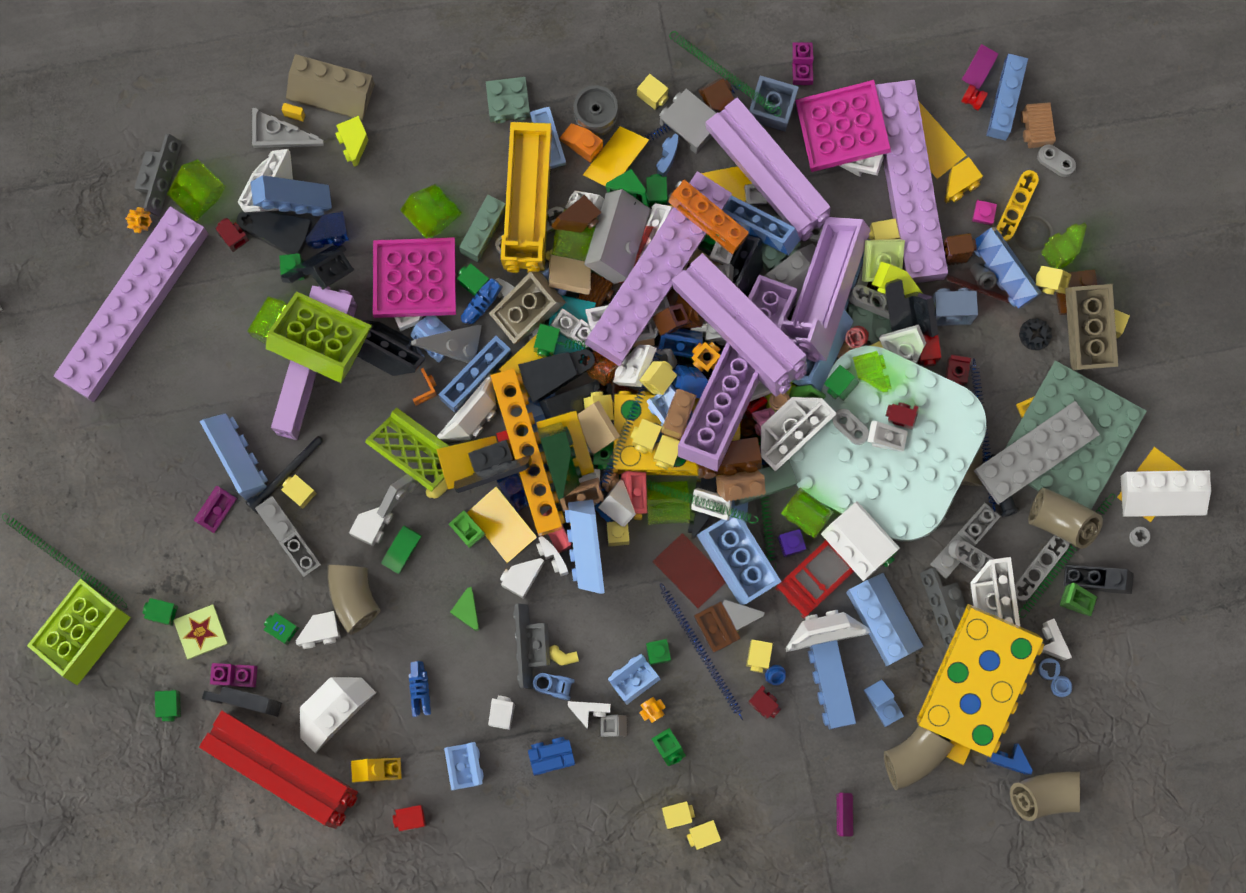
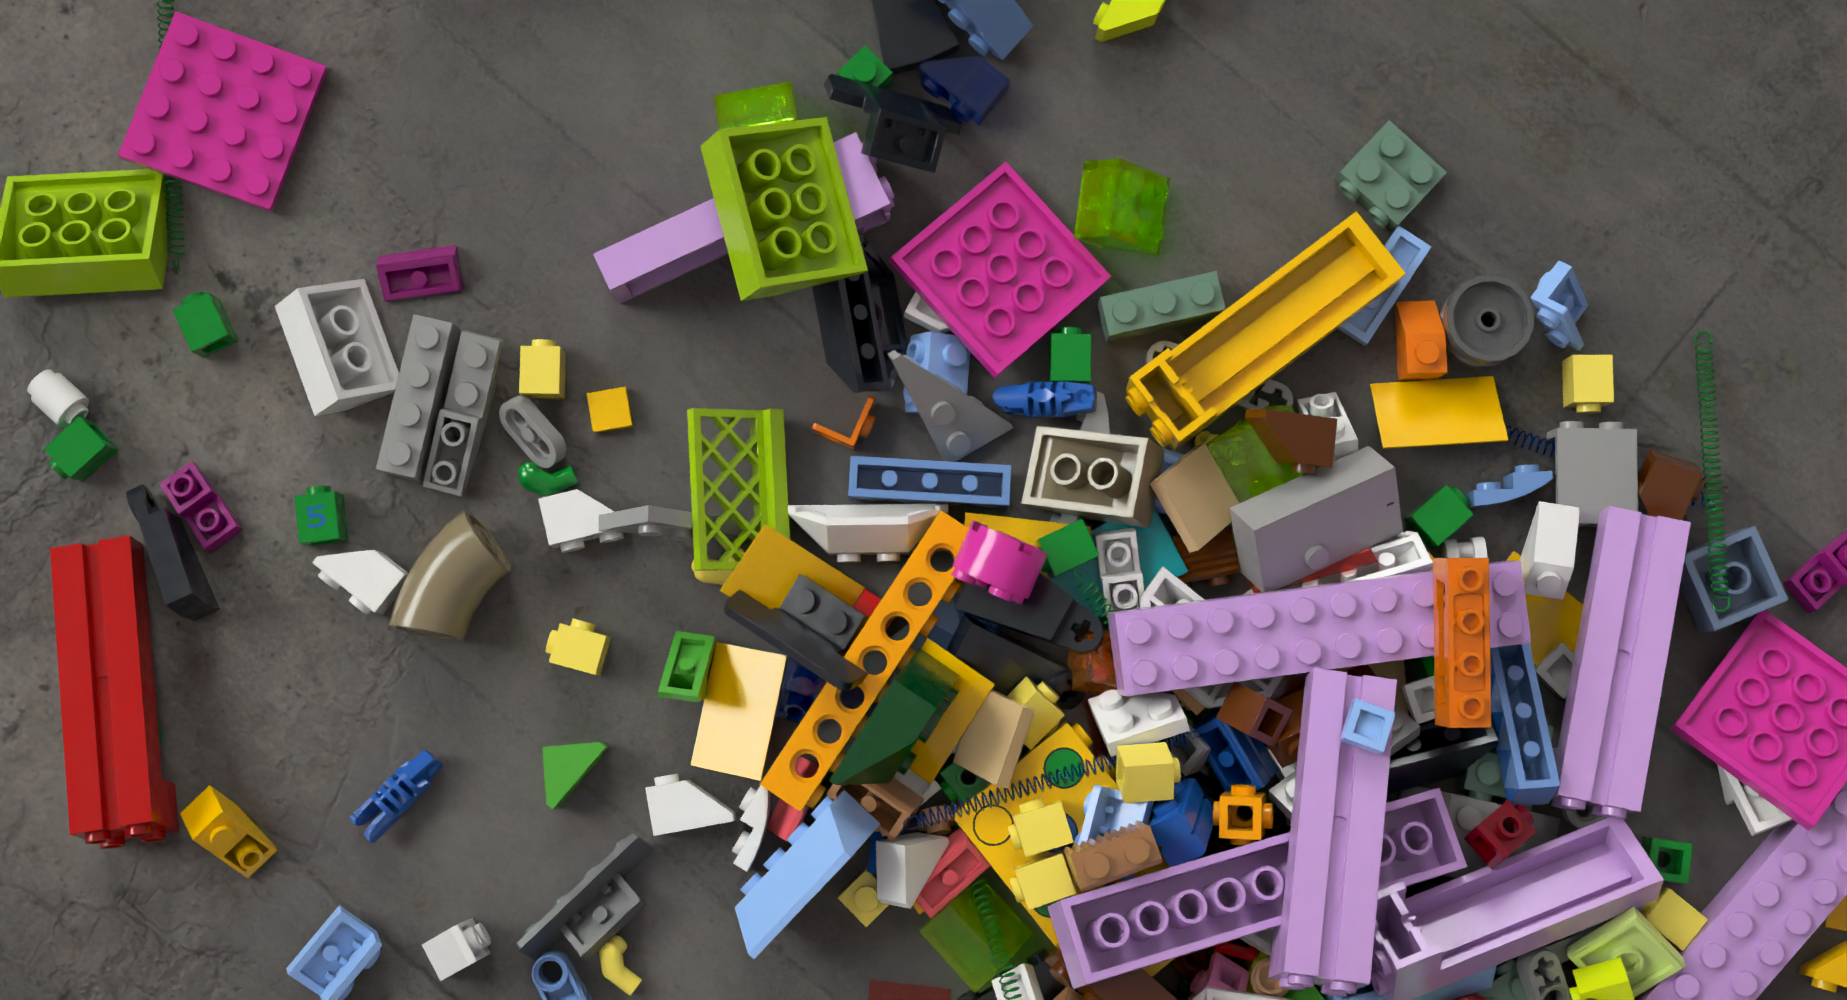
camera: 50 degrees right, 5 degrees up
(79, 534) = (223, 112): none -> dark pink plate
(138, 697) = (58, 398): none -> white brick
(200, 632) = (225, 405): yellowish green tile -> none
(216, 565) = (338, 345): none -> white slope
(234, 455) = (516, 234): light blue slope -> none
(257, 500) = (480, 323): black piece -> none
(266, 549) = (418, 397): none -> light grey brick
(319, 515) = (532, 431): none -> light grey plate
(331, 709) = (267, 691): white wedge -> none
(337, 478) = (609, 410): none -> yellow tile
(343, 528) = (544, 483): none -> green arm
(401, 549) = (581, 594): green slope -> none
(409, 818) = (196, 941): red brick -> none
(422, 567) = (578, 647): none -> light yellow brick
(529, 366) = (1000, 561): none -> dark pink brick
(614, 77) = (1560, 305): none -> light blue bracket
(630, 183) = (1413, 473): green slope -> none
(704, 158) = (1550, 550): none -> white slope
(709, 277) = (1367, 726): none -> light blue plate
(795, 265) = (1493, 841): none -> dark red brick
(862, 210) = (1677, 858): none -> green plate

